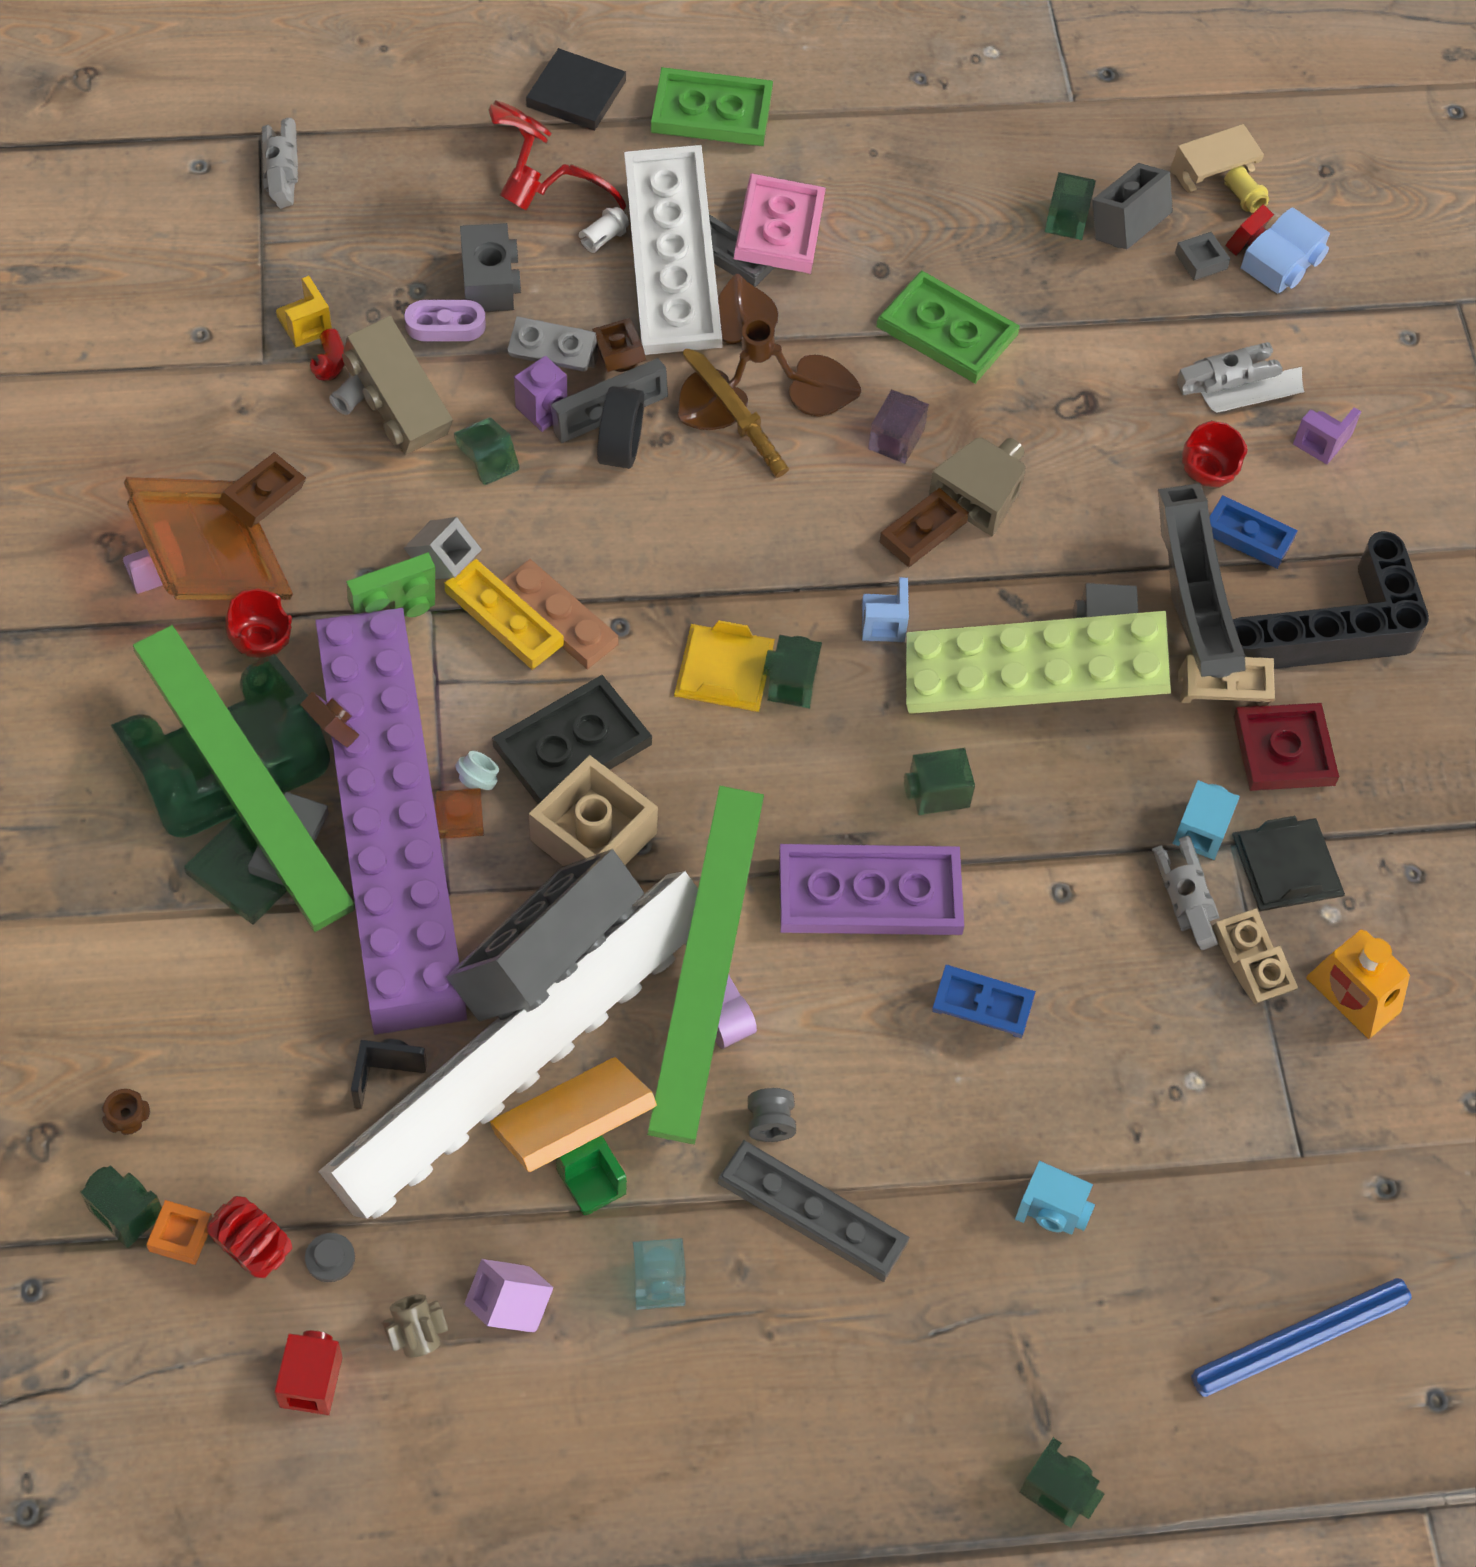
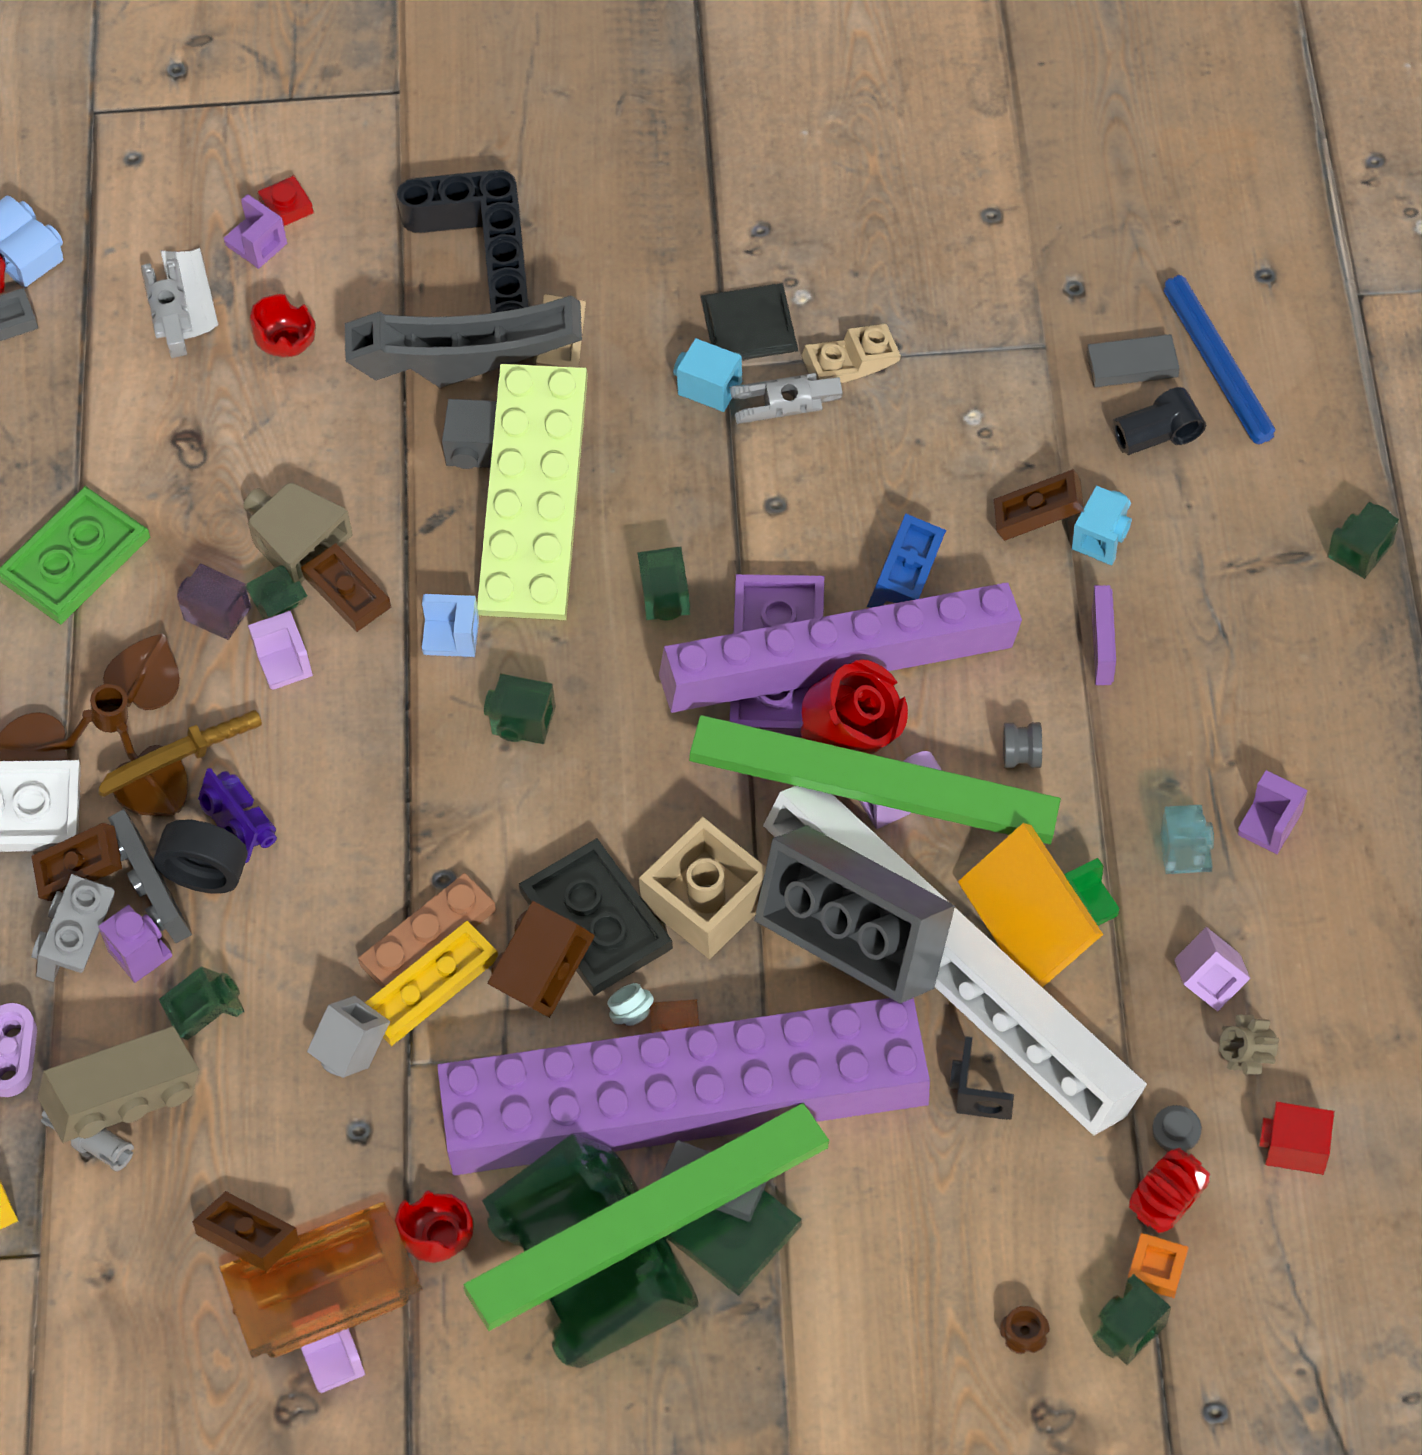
camera: 80 degrees left, 0 degrees up
(331, 362) = (47, 1171): red arm -> none
(331, 717) = (596, 1111): reddish brown plate -> none
(401, 585) = (410, 1072): bright green plate -> none
(515, 689) = (540, 958): none -> reddish brown brick
(664, 467) = (224, 800): none -> dark purple hinge
(697, 1368) = (1273, 812): none -> medium lavender panel
(724, 666) = (501, 781): yellow piece -> none
(767, 959) = (854, 708): none -> red brick
(813, 1210) = (1111, 721): dark grey tile -> none
(852, 486) = (280, 650): none -> lavender panel
(867, 934) = (808, 650): none -> medium lavender brick
(908, 471) = (276, 593): none -> clear green bracket
(912, 1197) = (1103, 635): none -> medium lavender tile
(1069, 1131) = (1038, 505): none -> reddish brown plate
(1204, 1277) = (1169, 418): none -> black piece
(1251, 531) = (382, 293): blue plate -> none
(1286, 746) = (627, 306): dark red plate -> none
(1287, 1244) = (1133, 360): none -> dark grey tile
(1363, 982) = (884, 271): light orange torso -> none
(1372, 456) = (286, 200): none -> red plate

